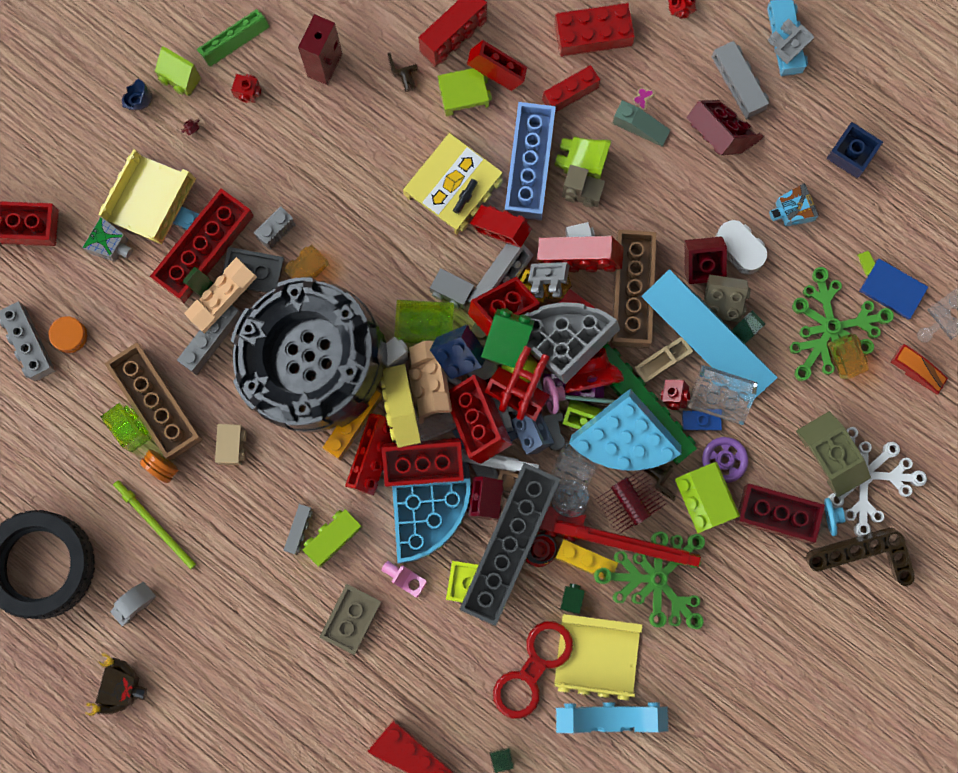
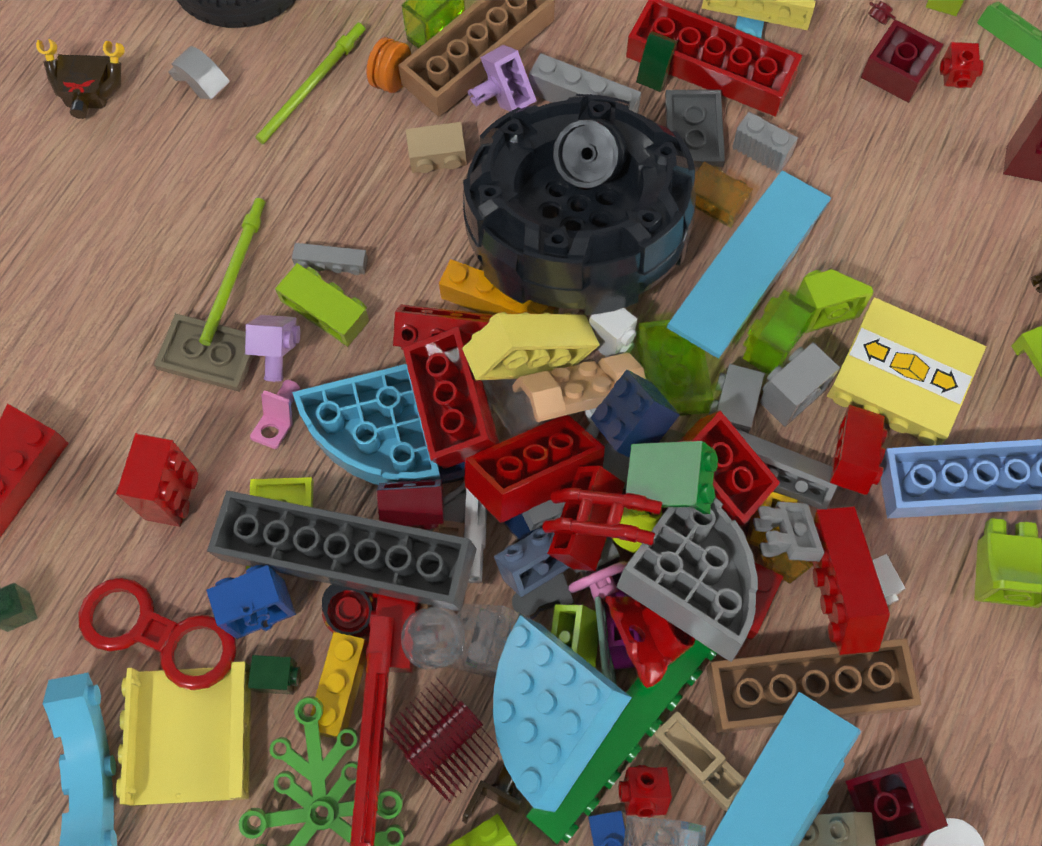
camera: 80 degrees right, 10 degrees down
(193, 387) = (505, 80): none -> lavender brick
(220, 295) = (661, 92): light nougat piece -> none
(234, 124) = (901, 60): none -> dark red brick
(260, 579) = (250, 226): none -> lime bar
(282, 340) = (580, 138): none -> black wheel
(355, 572) = (272, 338): none -> lavender brick
(364, 258) = (749, 264): none -> medium azure slope
(397, 219) = (834, 297): none -> lime slope
(415, 253) = (777, 331): none -> clear neon green brick
(441, 653) = (157, 480): none -> red brick
(452, 250) = (798, 383): none -> light grey brick
(465, 196) = (890, 385): black bar -> none
(528, 611) = (249, 600): none -> blue brick
(582, 187) = (961, 568): dark tan brick -> none

